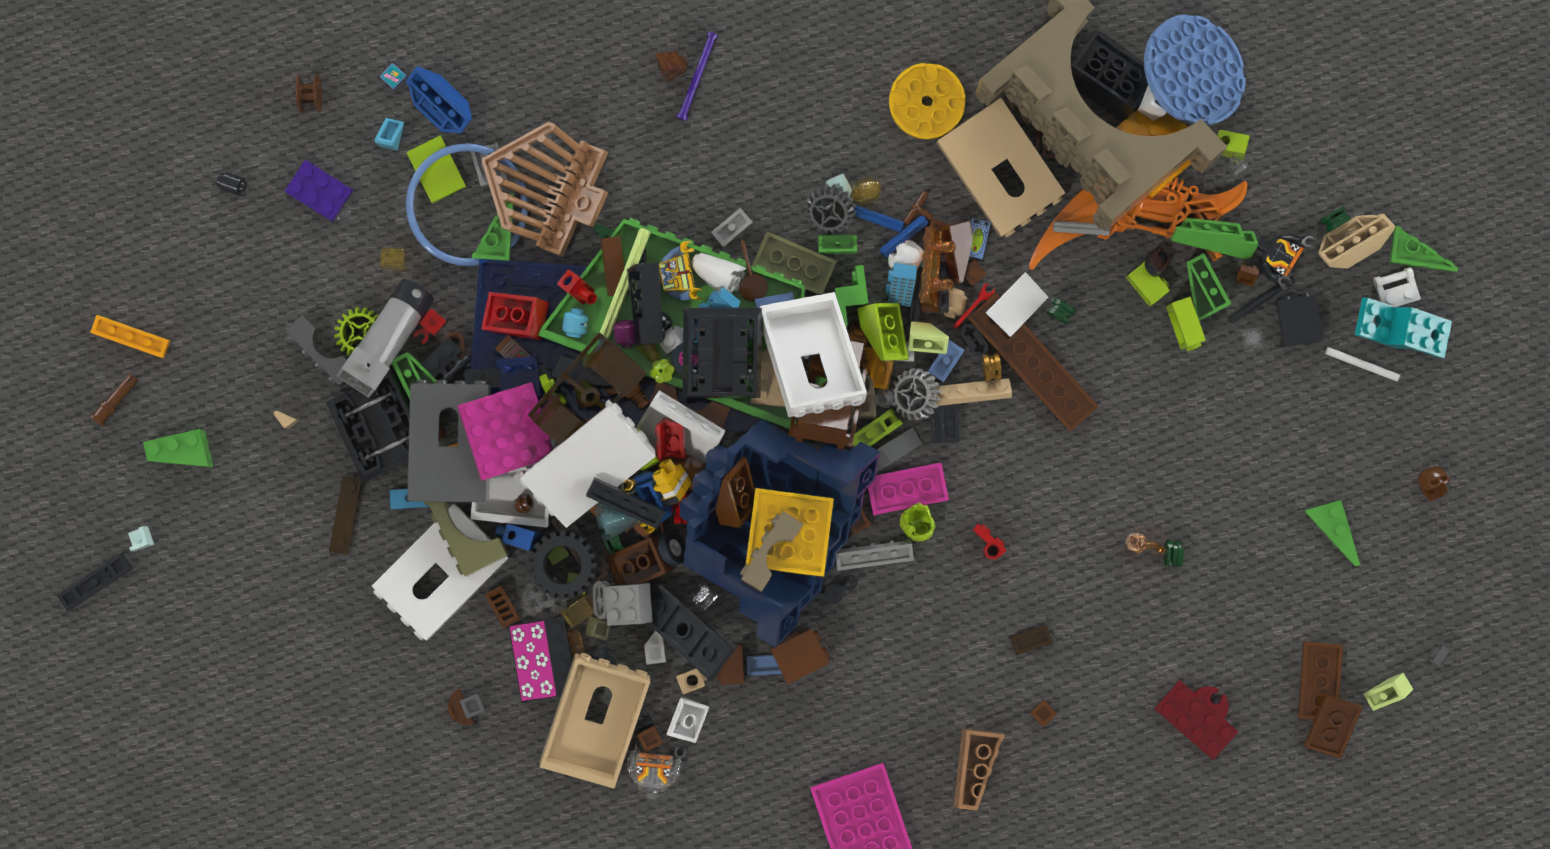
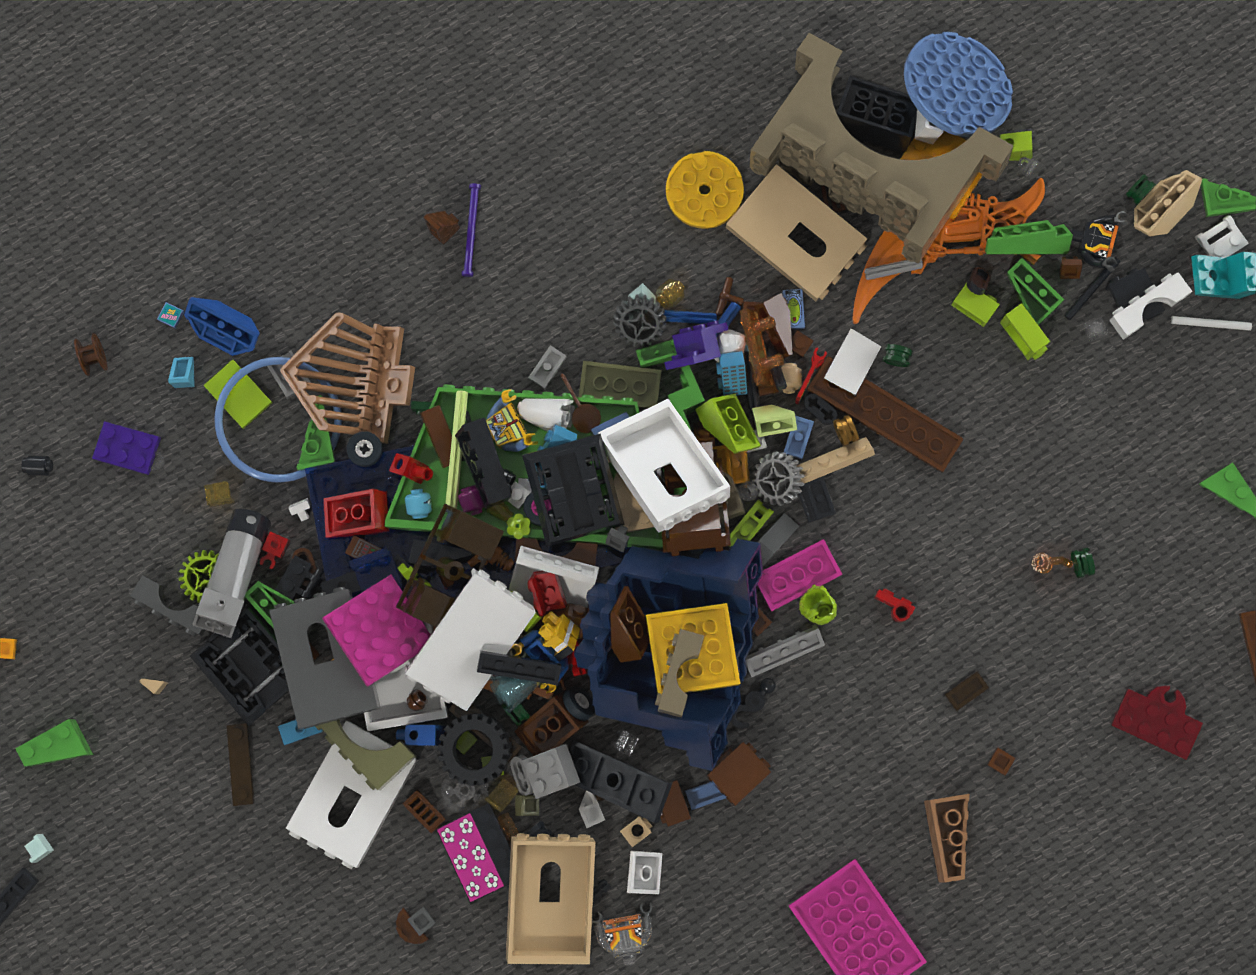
camera: 10 degrees left, 5 degrees down
(465, 294) = (300, 509): none -> white tile
(536, 247) = (356, 455): none -> black bush
(650, 738) = (611, 902): reddish brown tile -> none
(750, 409) = (618, 538): none -> dark grey tile
(875, 248) = (696, 344): none -> dark purple bracket
(1332, 325) = (1170, 291): none -> white arch

